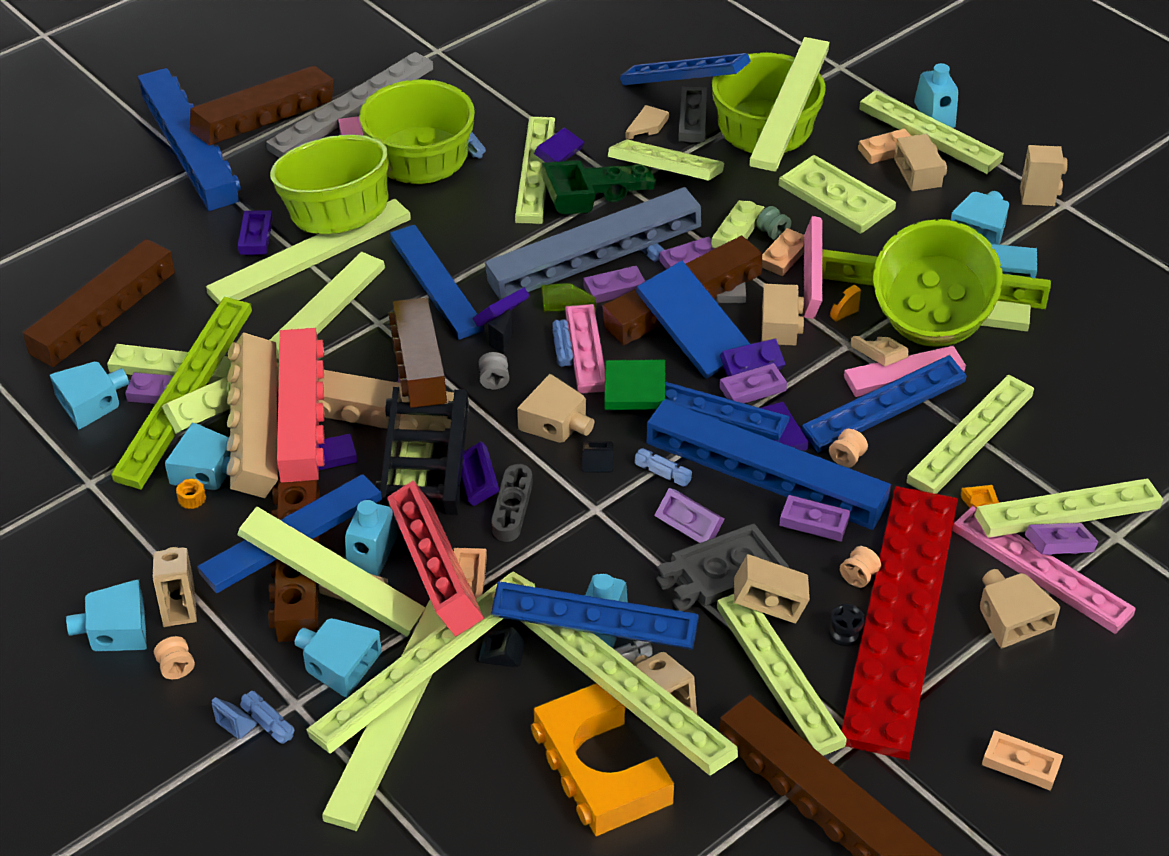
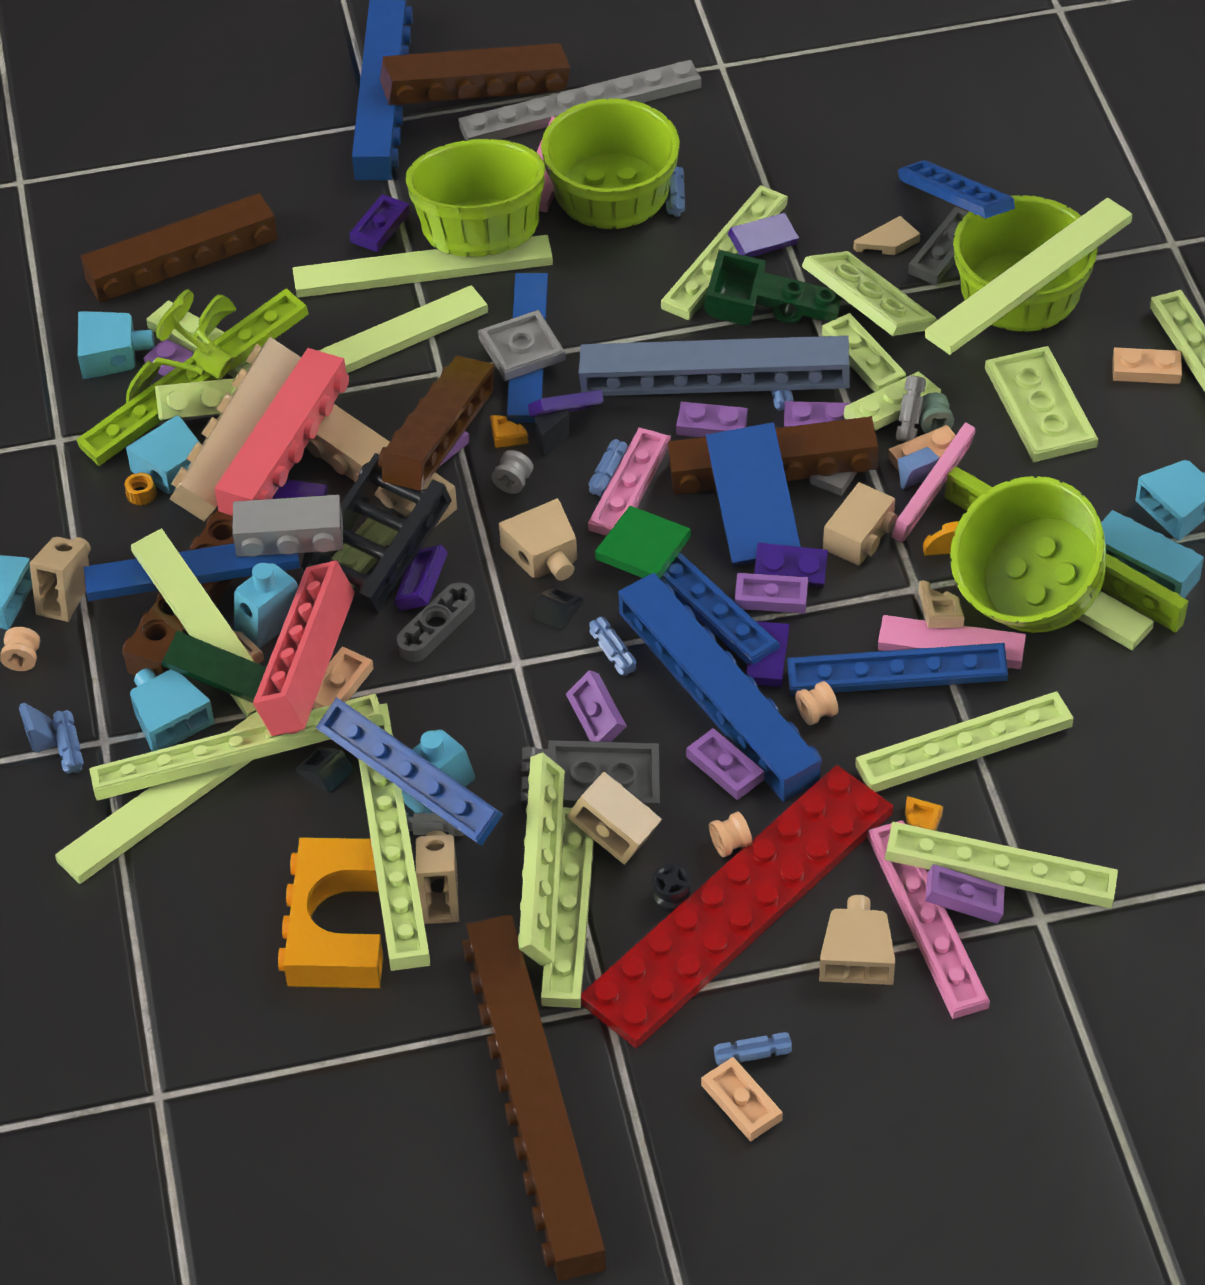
camera: 30 degrees right, 5 degrees up
(195, 366) = (207, 355): none -> lime plant
(359, 467) = (287, 525): none -> light grey brick
(369, 602) = (214, 666): none -> dark green tile
(434, 278) = (521, 345): none -> light grey tile
(463, 346) = (506, 432): none -> light orange tile
(558, 296) = (647, 414): clear neon green tile -> none
(712, 208) = (865, 353): none -> yellowish green plate
(749, 653) = (541, 860): none -> yellowish green plate
(758, 223) = (910, 408): none -> light grey axle
(792, 260) = (916, 467): none -> medium blue slope
(920, 162) = (1162, 400): tan brick -> none
(998, 719) = (753, 1048): none -> medium blue axle

